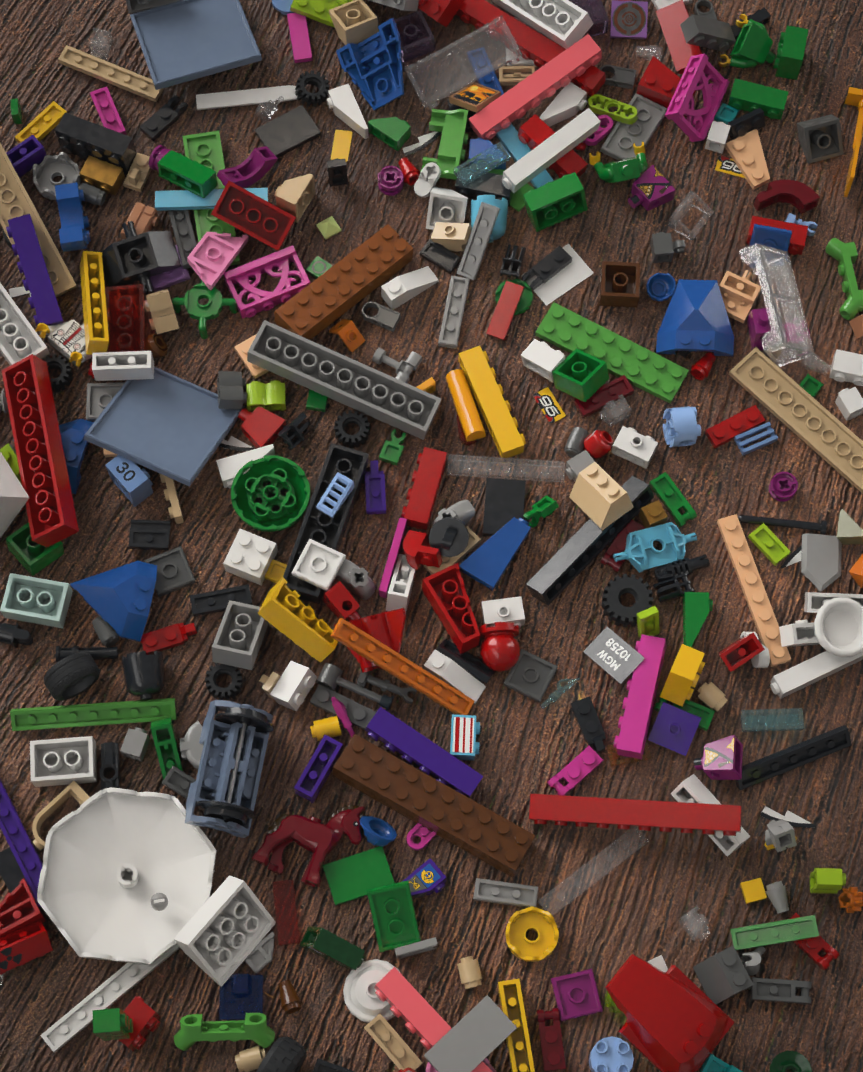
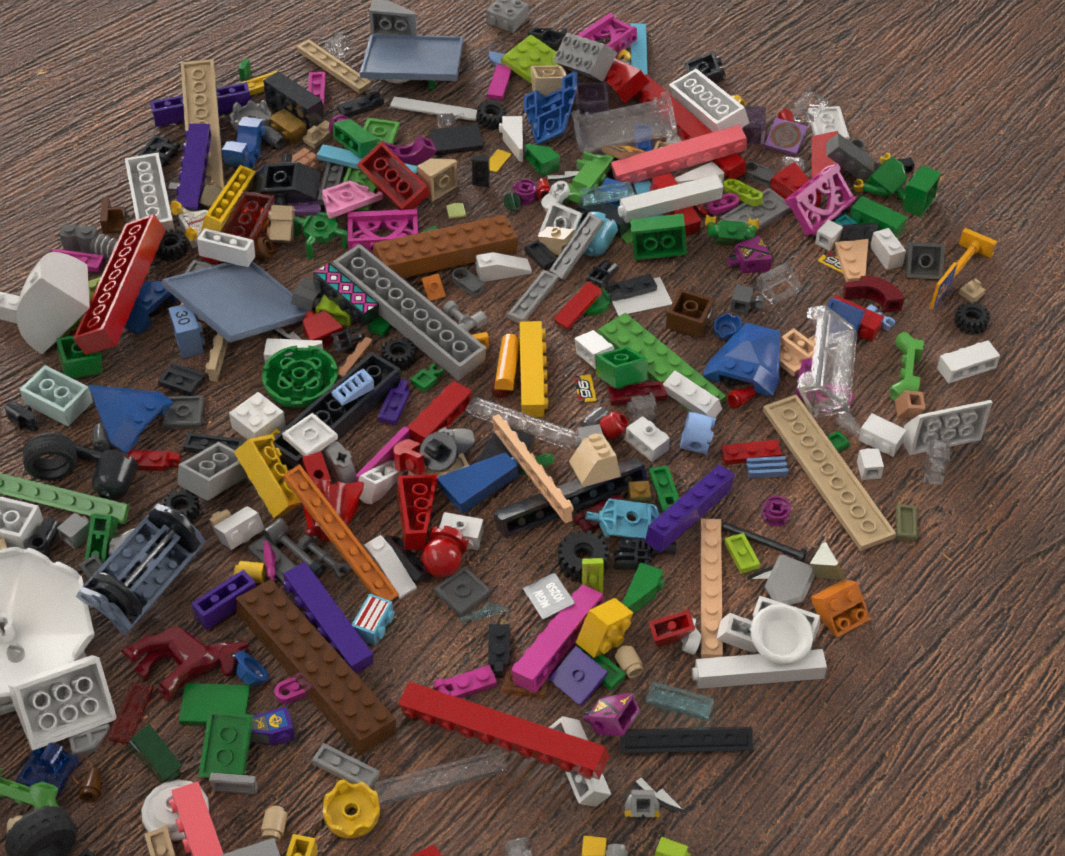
camera: 20 degrees right, 20 degrees down
(70, 299) = (210, 195): none -> dark tan brick
(273, 382) = (345, 294): none -> black brick
(312, 454) = (361, 351): none -> nougat plate
(382, 198) = (512, 201): none -> dark green plate
(552, 530) = (535, 471): none -> light nougat plate
(662, 387) = (692, 395): none -> white brick
(707, 516) = (689, 508): none -> dark purple brick
(781, 136) = (888, 249): none -> white brick

